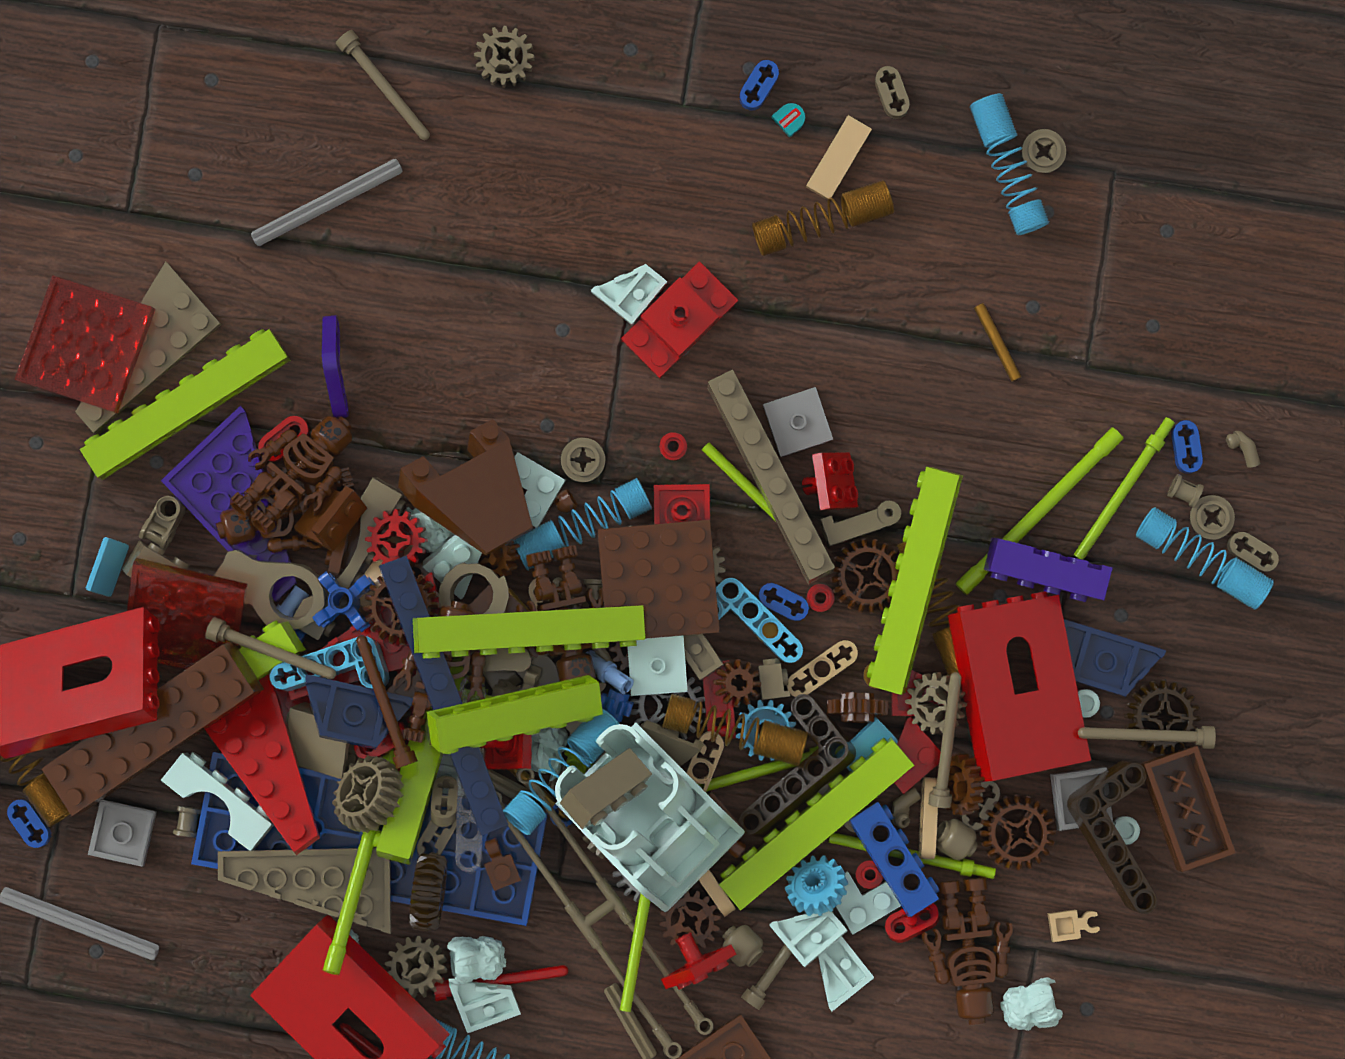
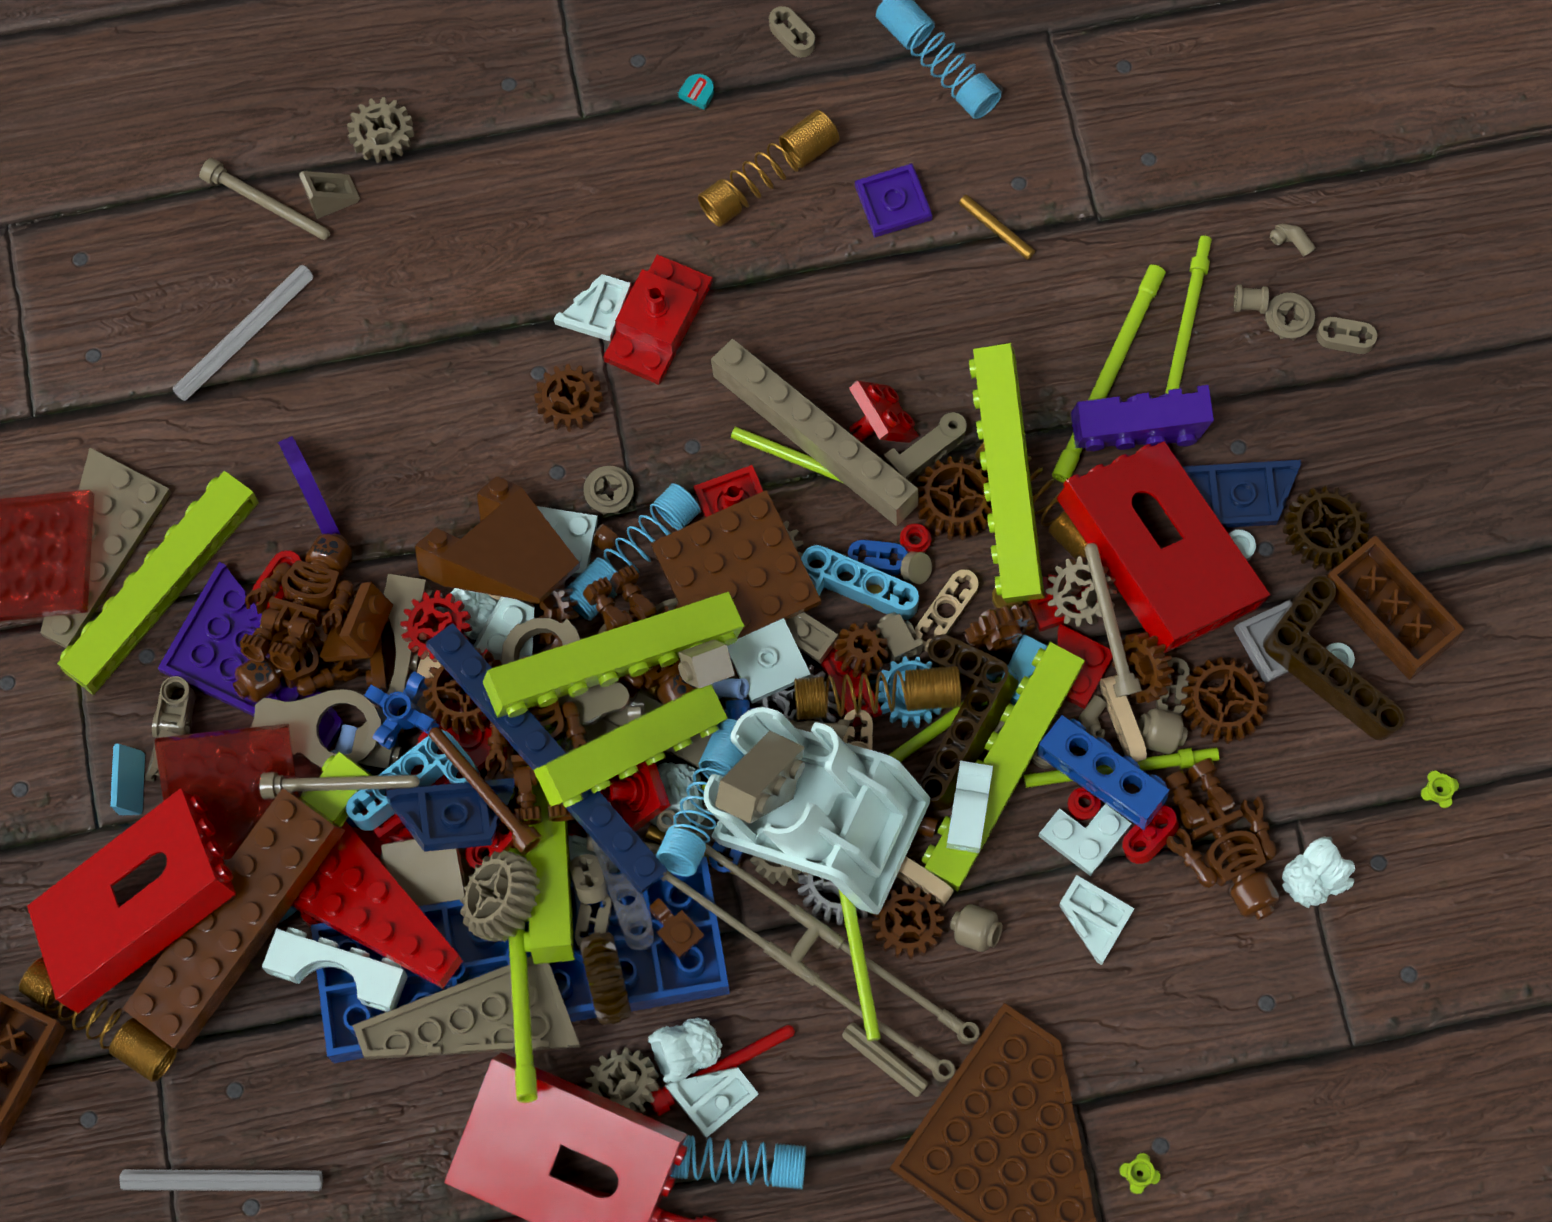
camera: 15 degrees left, 15 degrees down
(24, 828) = (123, 1096): blue beam -> none
(122, 833) = (237, 1060): light grey plate -> none
(187, 821) = (307, 1020): dark tan bush -> none
(441, 99) = (328, 191): none -> dark tan slope
(565, 365) = (579, 391): none -> reddish brown gear
(600, 664) = (705, 664): none -> dark tan brick
(673, 437) = (699, 435): red plate -> none
(697, 964) = (935, 958): red plate -> none
(756, 994) = (1012, 977): dark tan piece -> none
(764, 89) = (647, 69): blue beam -> none
(772, 853) = (969, 807): none -> light aqua piece
(797, 422) = (821, 373): light grey plate -> none
(809, 935) = (1044, 887): light aqua wing -> none
(811, 624) = (916, 567): none -> dark tan tile
(816, 886) = (1032, 831): medium azure gear -> none
(838, 157) = (762, 110): tan tile -> none
(918, 286) = (893, 200): none -> dark purple plate
(1044, 138) = (963, 22): dark tan gear -> none
(1067, 924) = (1319, 778): tan plate -> none
(1153, 969) = (1444, 781): none -> lime plate
(1180, 448) = (1239, 254): blue beam -> none
(1202, 737) = (1378, 525): dark tan piece -> none
(1237, 577) = (1341, 363): medium azure piece -> none

